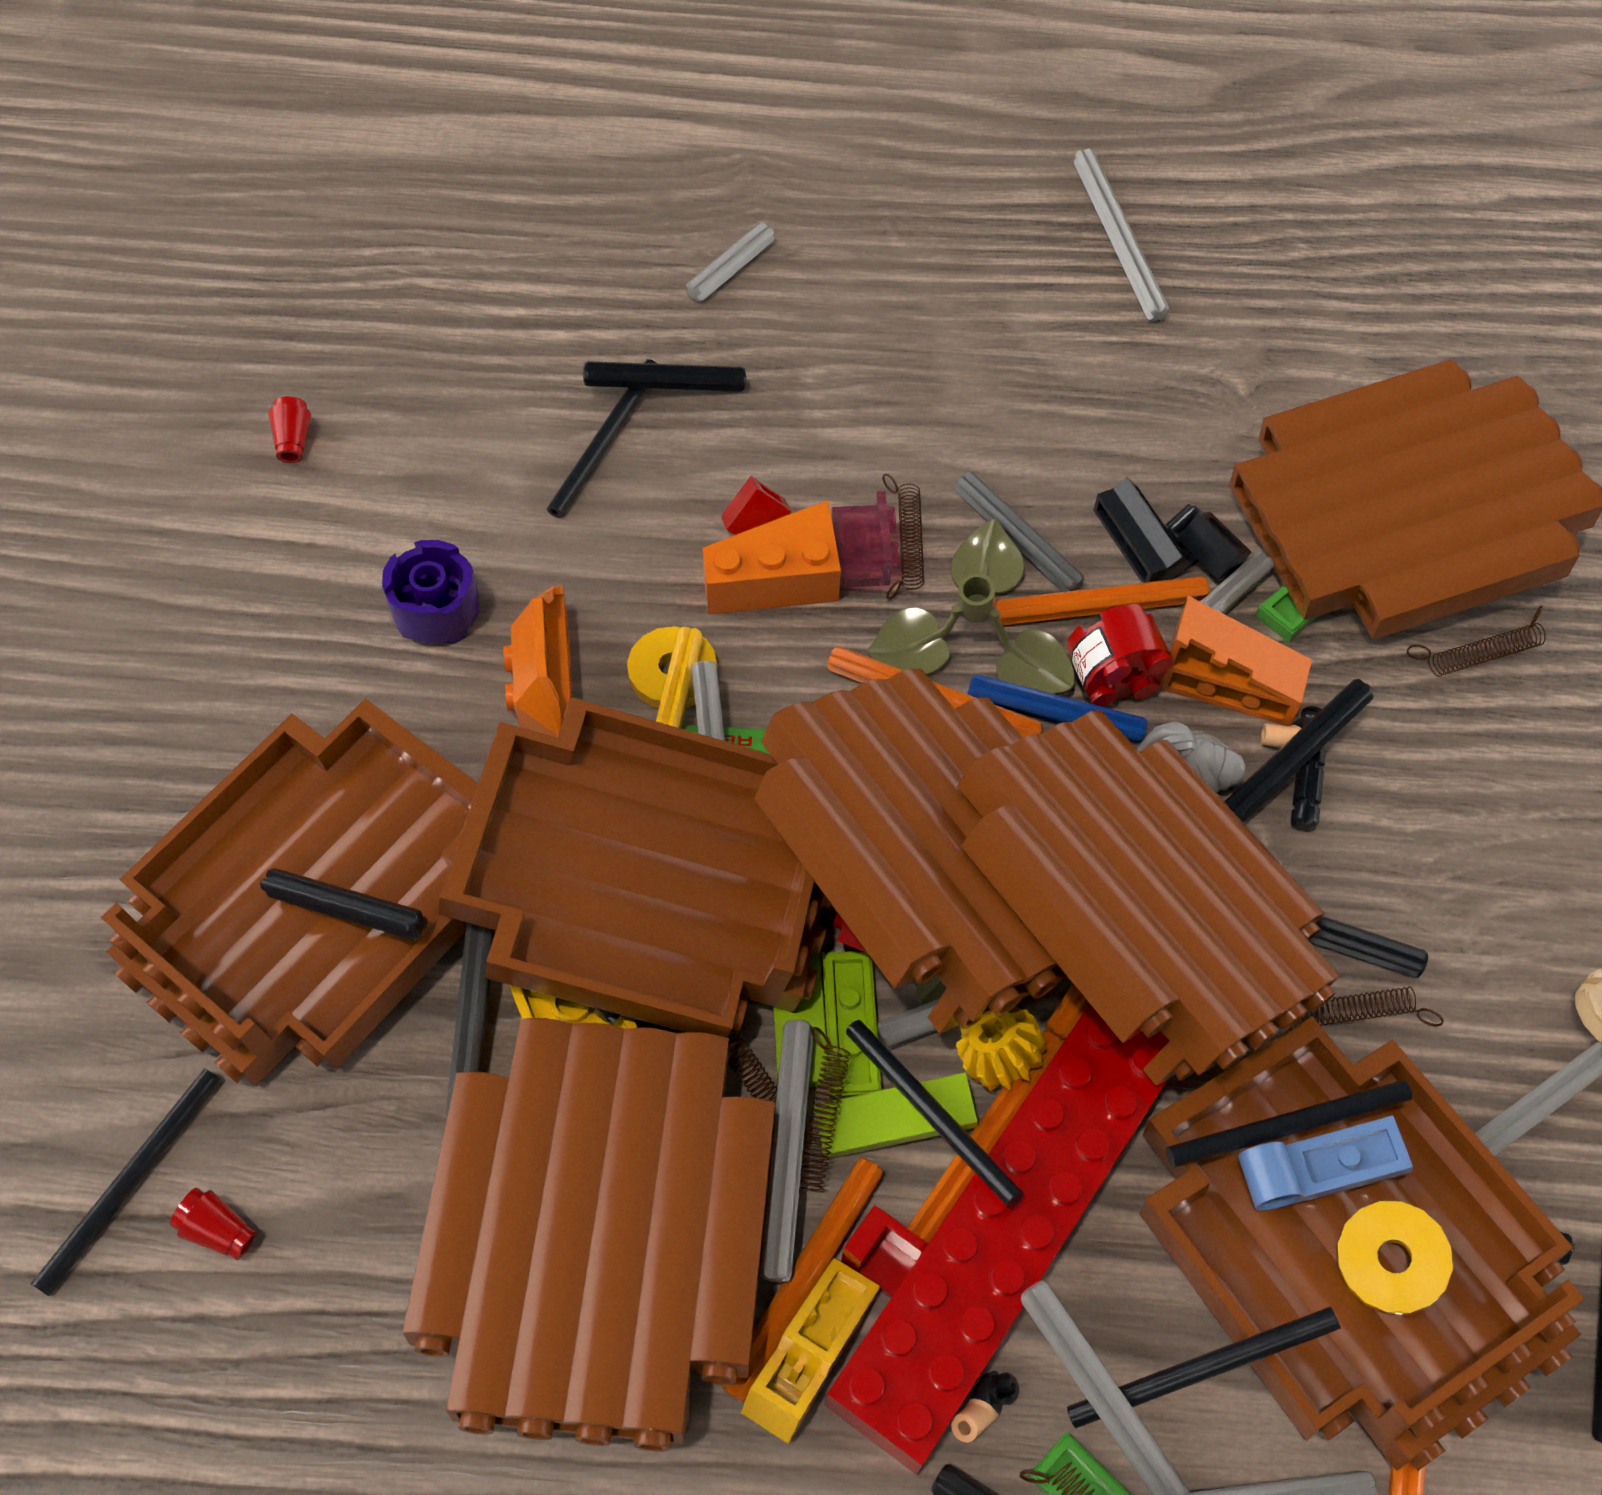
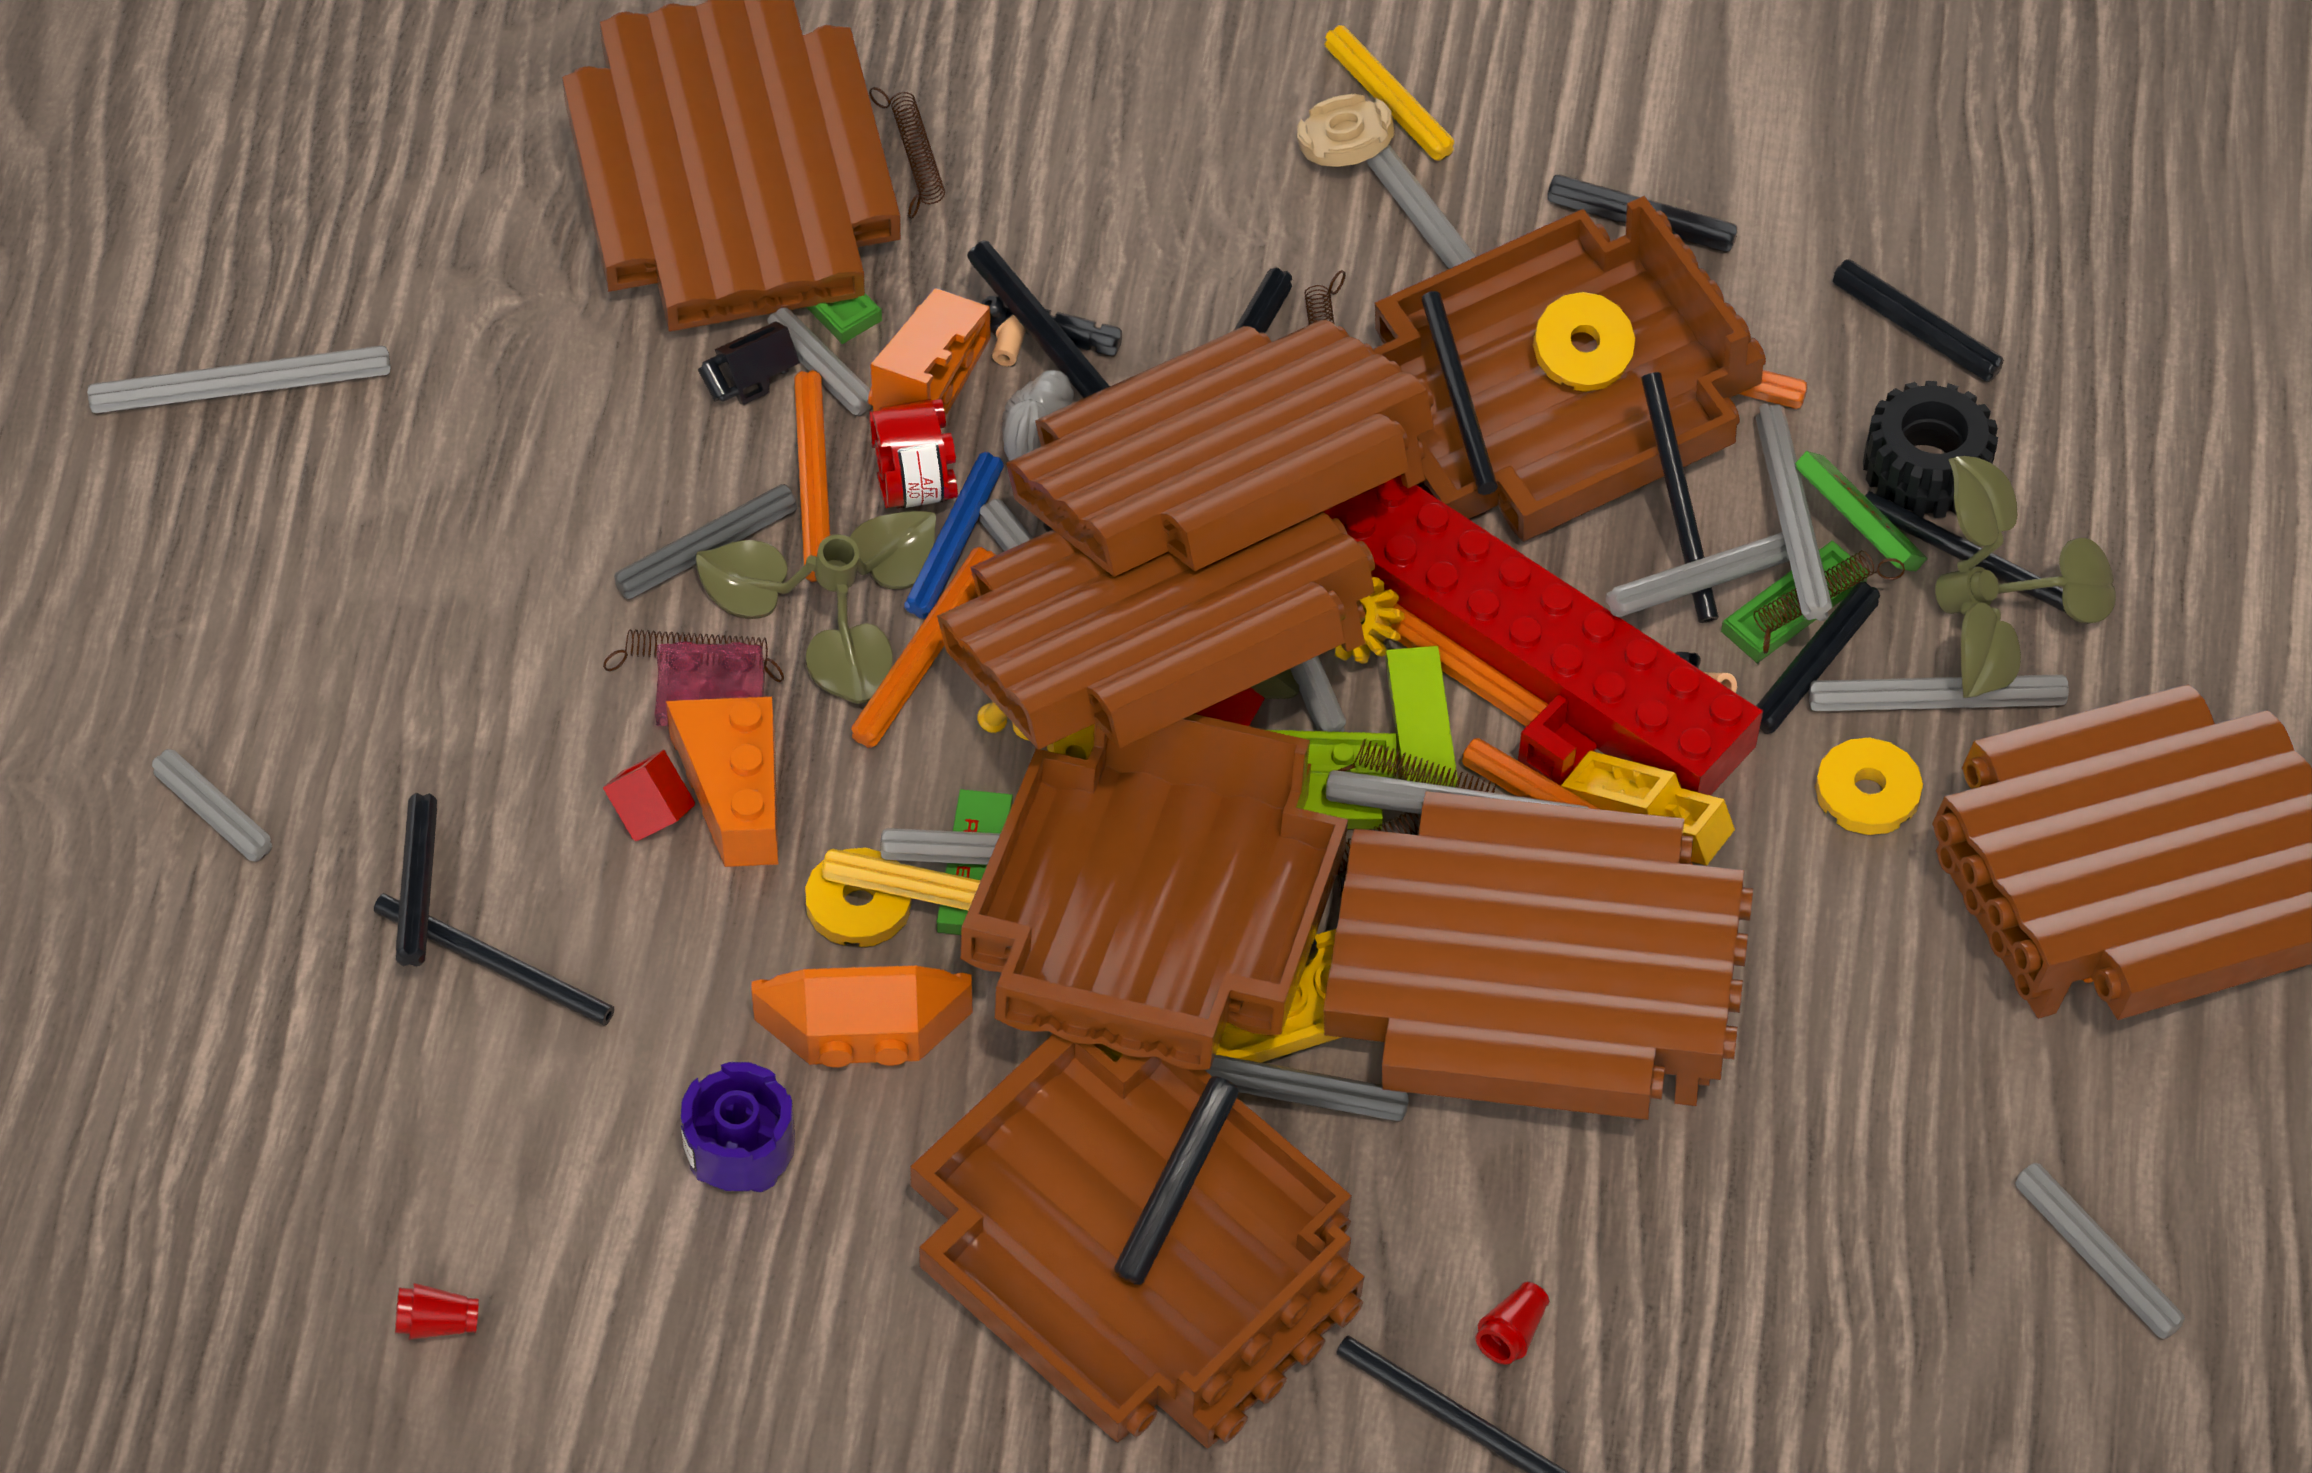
camera: 85 degrees left, 5 degrees down
(935, 1114) = (1432, 672): black axle -> none
(1140, 533) = (726, 426): black piece -> none
(1324, 1164) = (1497, 372): medium blue plate -> none

